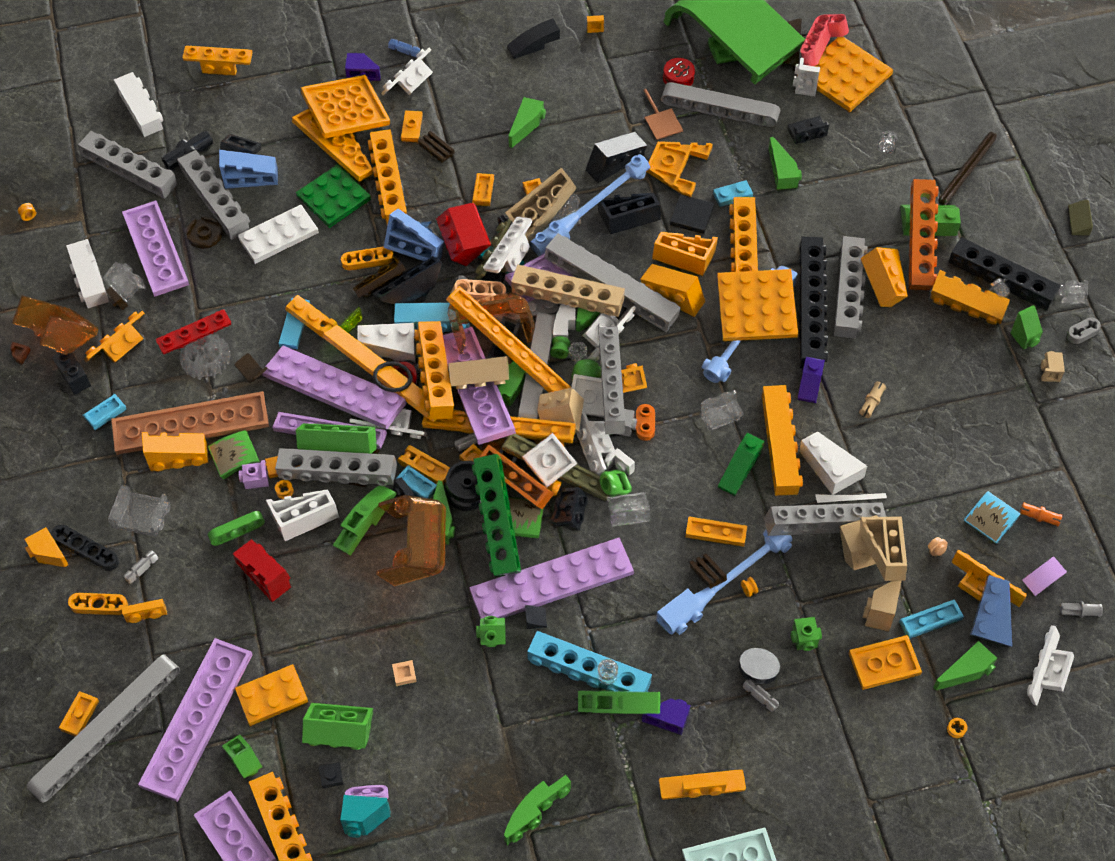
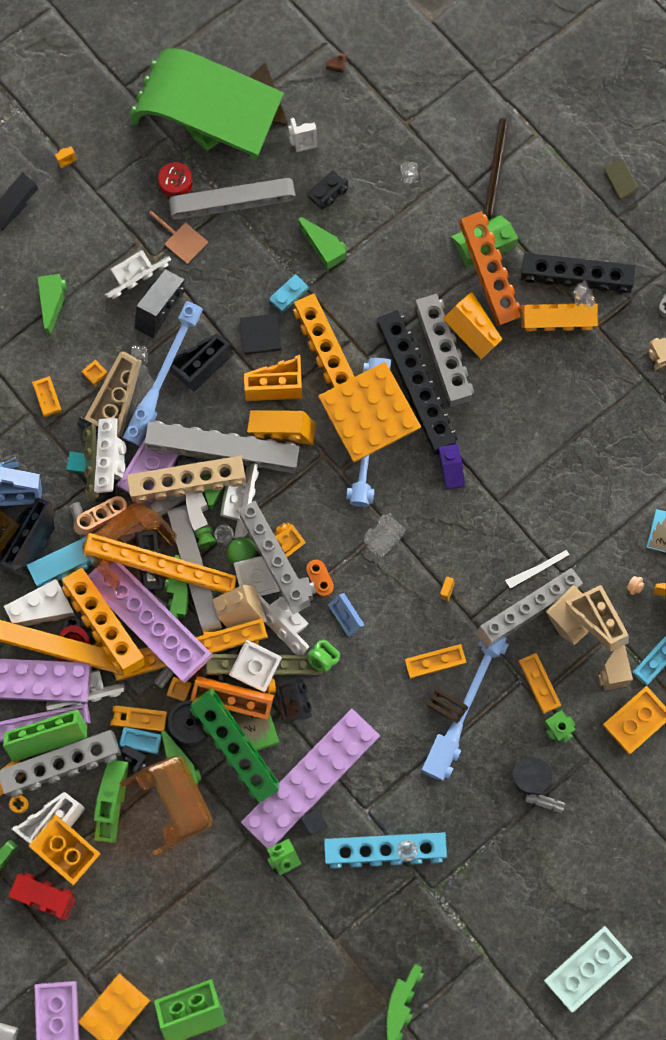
camera: 25 degrees left, 15 degrees up
(300, 534) = (64, 849): none -> light orange slope
(393, 364) = (61, 633): black piece -> none
(404, 673) = (223, 933): light nougat plate -> none
(463, 233) = (54, 457): red slope -> none
(479, 372) = (146, 606): tan slope -> none
(582, 187) = (140, 353): none -> clear wheel
(607, 124) = (132, 270): none -> white bracket
(619, 702) = (430, 875): bright green slope -> none
(621, 462) = (319, 631): white bracket -> none
(628, 509) = (346, 675): clear bracket -> none
(653, 459) = (346, 614): none -> medium blue plate
(669, 161) = (212, 285): light orange wing -> none
(671, 717) = (477, 860): dark purple slope -> none
(702, 784) = (532, 911): light orange bracket -> none
(741, 463) = (427, 583): green slope -> none
(749, 587) = (489, 703): light orange bush -> none
(757, 476) = (447, 588): none -> light orange tile
(781, 441) = (451, 541): light orange brick -> none
(805, 591) = (539, 683): none -> light orange tile
(819, 35) = (293, 67): coral beam -> none
(831, 463) = (507, 545): white wedge -> none
(849, 73) = (337, 107): light orange plate -> none
(864, 42) = (337, 63): none -> reddish brown tile
(872, 399) = (515, 460): tan pin -> none
(1027, 328) = (624, 325): bright green slope -> none
(1074, 292) = (648, 264): clear brick -> none

